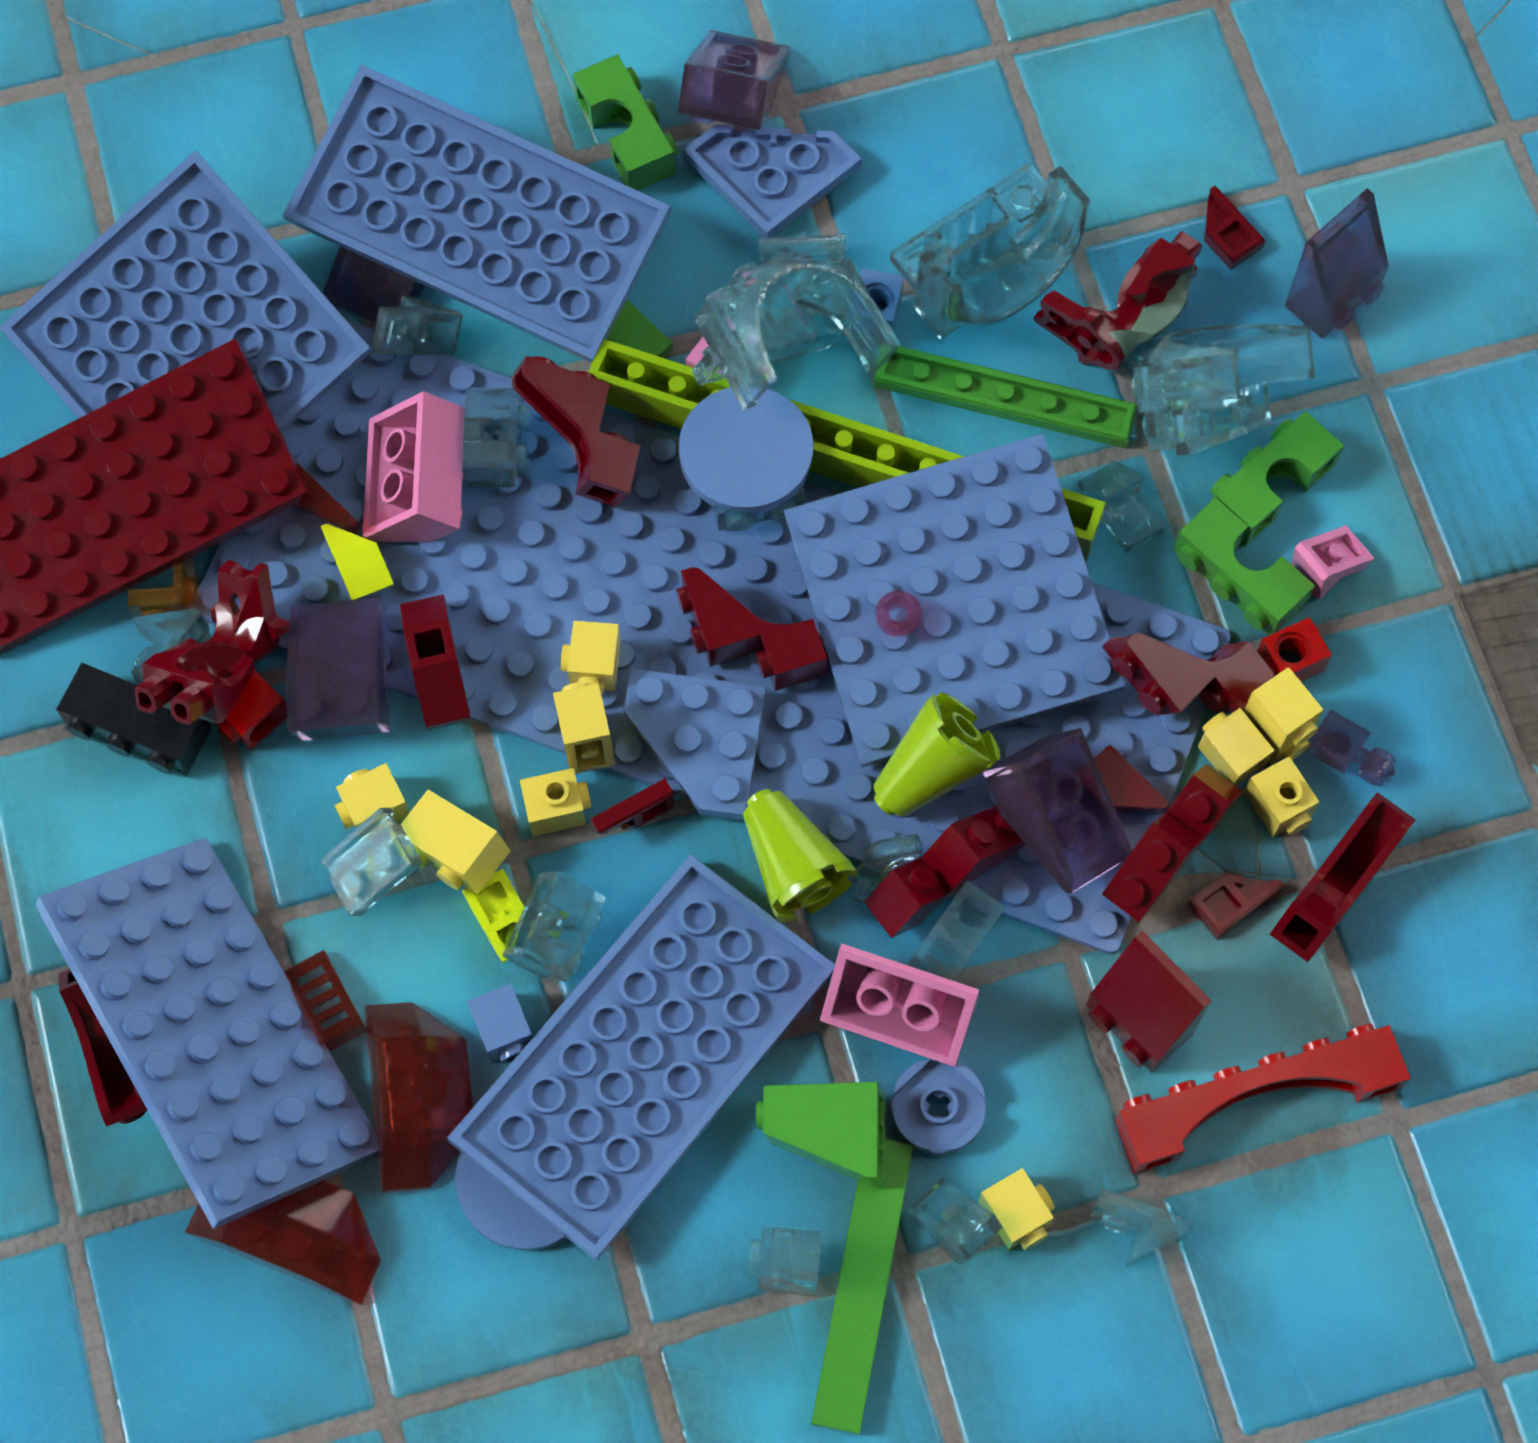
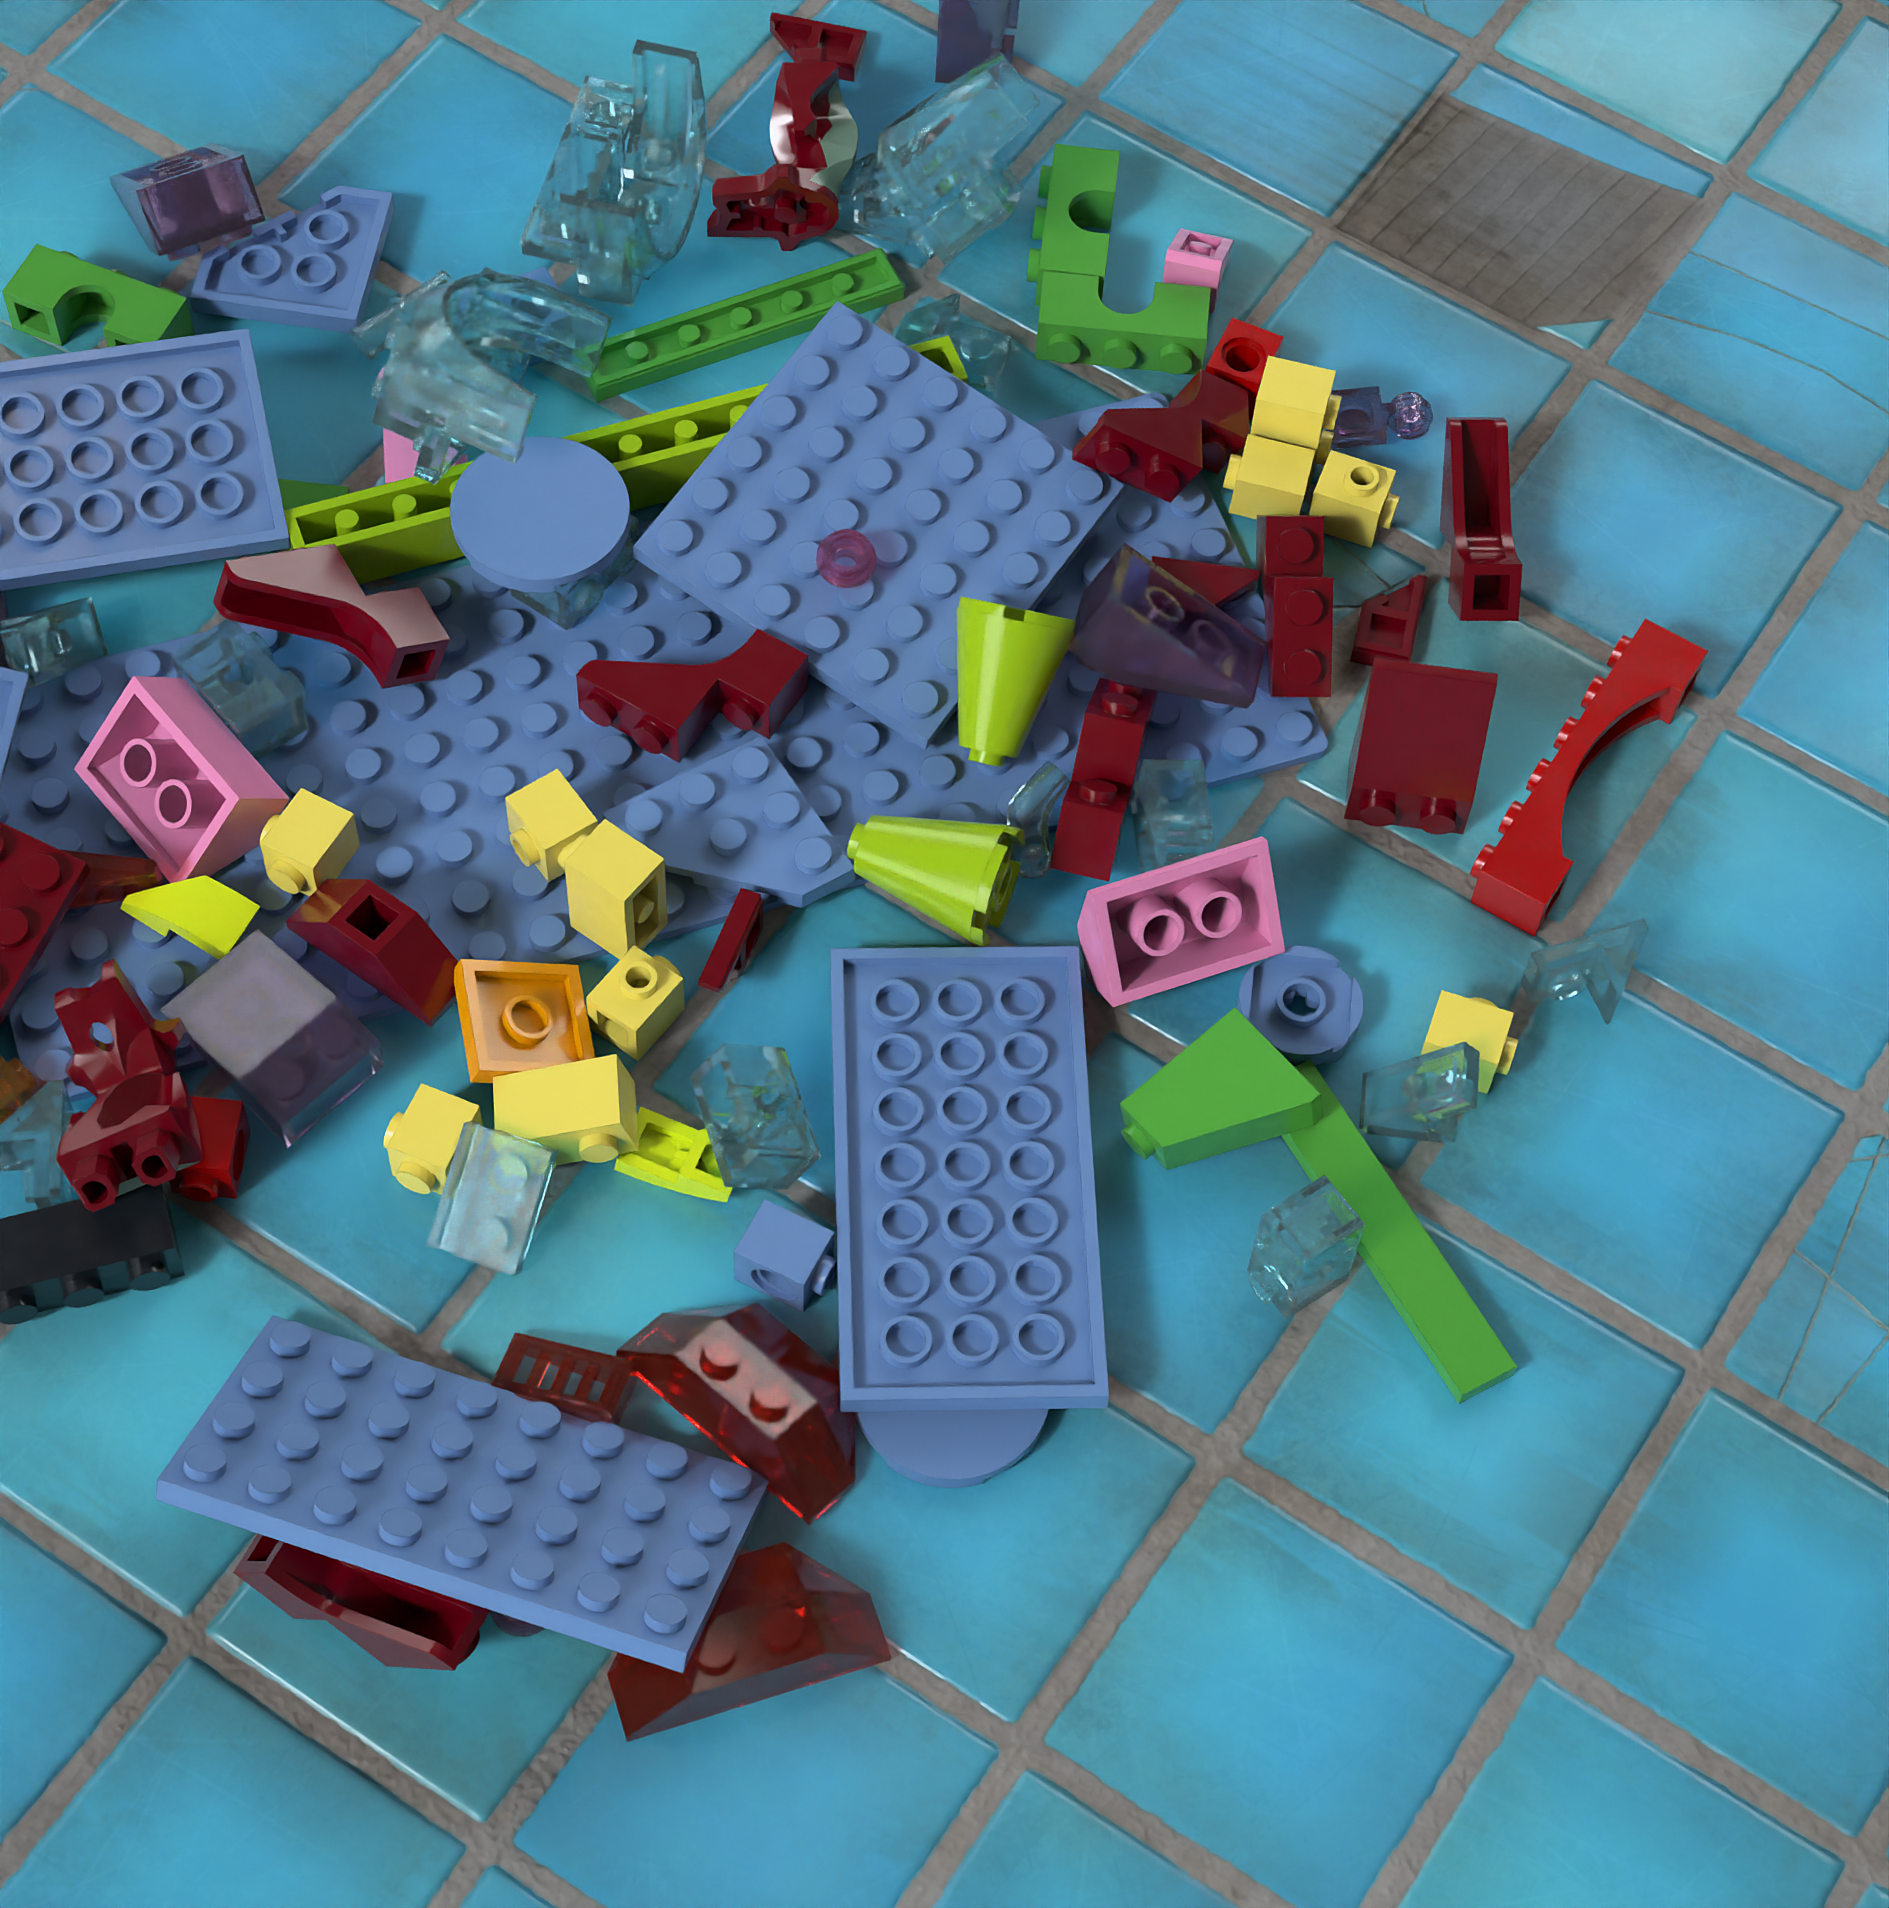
camera: 45 degrees left, 10 degrees down
(448, 565) = (308, 843): none -> light yellow brick
(478, 766) = (520, 1016): none -> light orange plate

